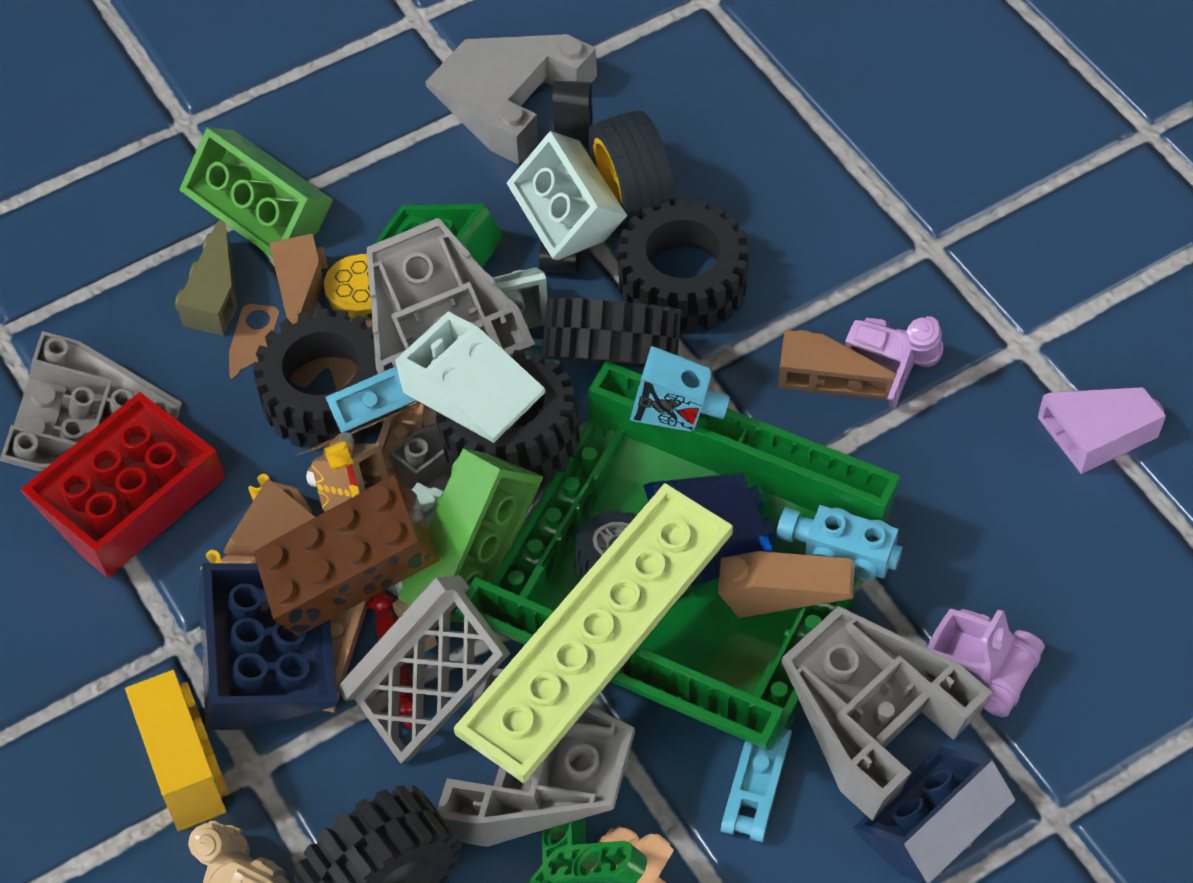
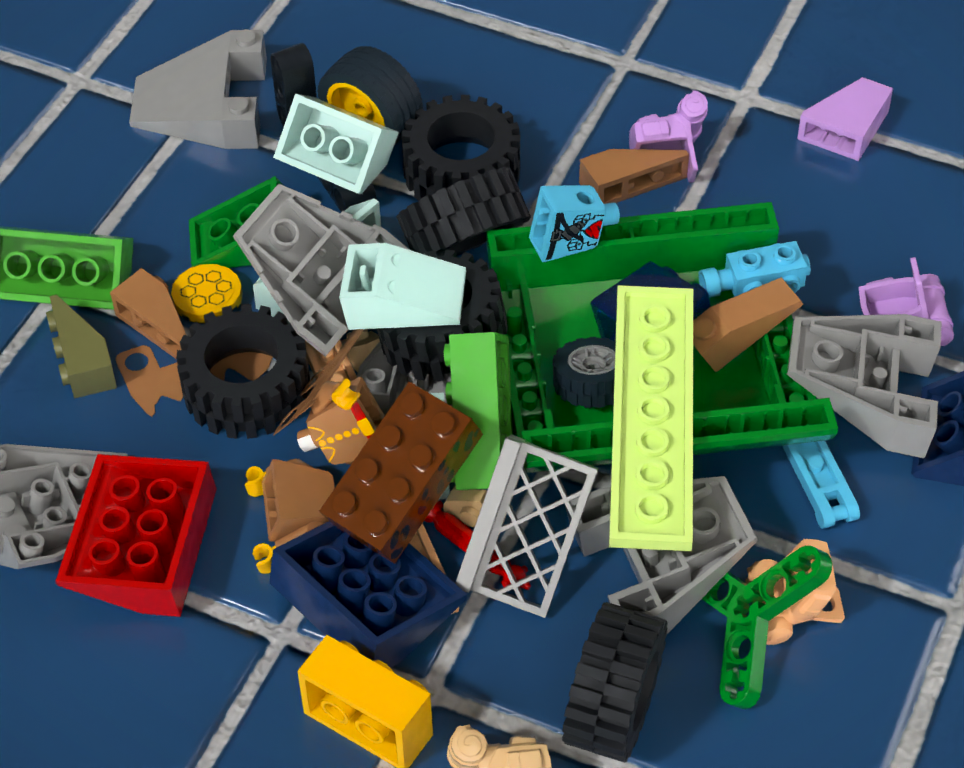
camera: 35 degrees left, 5 degrees down
(368, 400) = (316, 350): medium azure plate -> none

